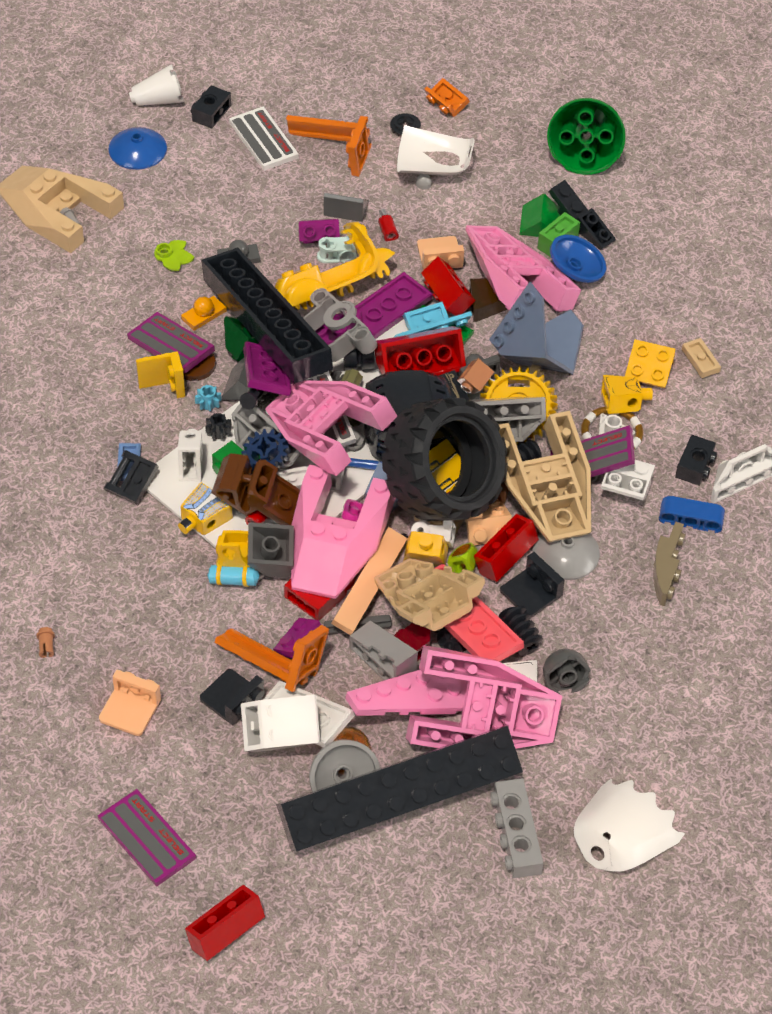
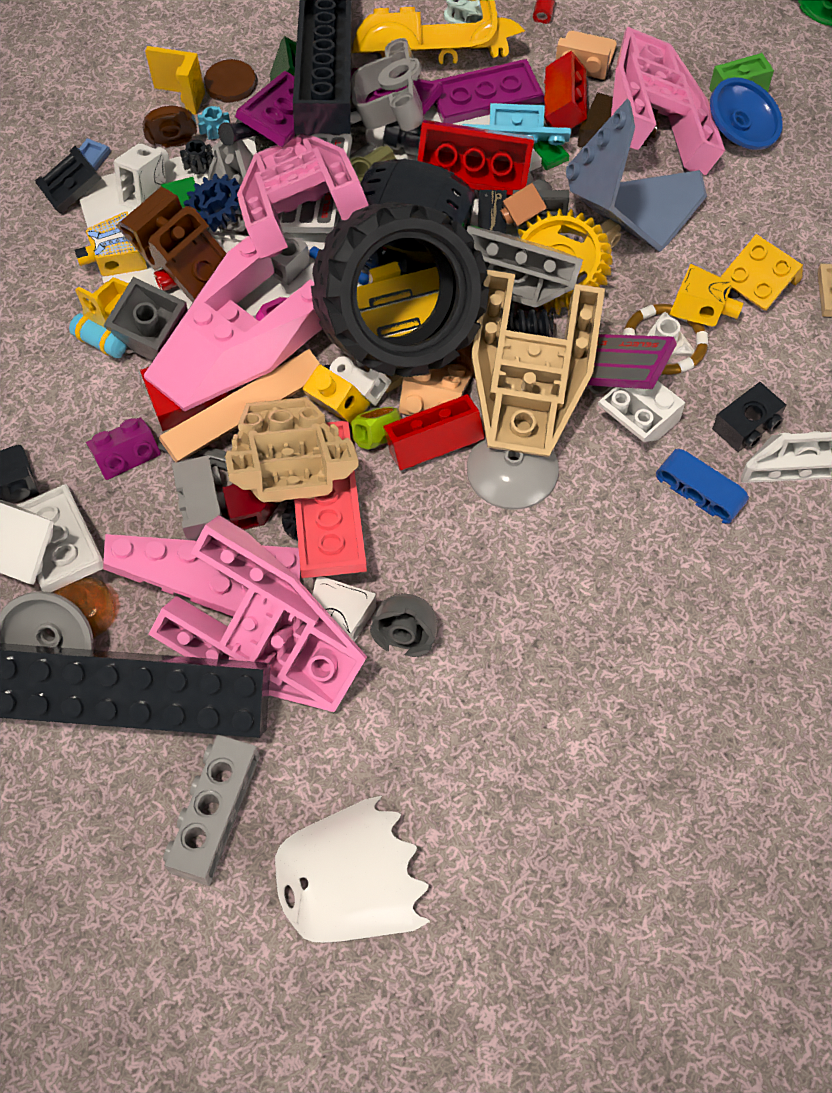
camera: 30 degrees right, 10 degrees up
(163, 336) = (218, 48): tile -> none
(183, 412) = (169, 126): none -> reddish brown tile
(203, 311) = (274, 27): light orange tile -> none
(305, 660) = (83, 466): orange bracket -> none
(523, 627) = (386, 545): black piece -> none
(535, 586) = (437, 497): black bracket -> none
(538, 215) = (731, 46): green slope -> none
(591, 225) = (788, 76): black slope -> none
(666, 564) = (627, 535): dark tan slope -> none

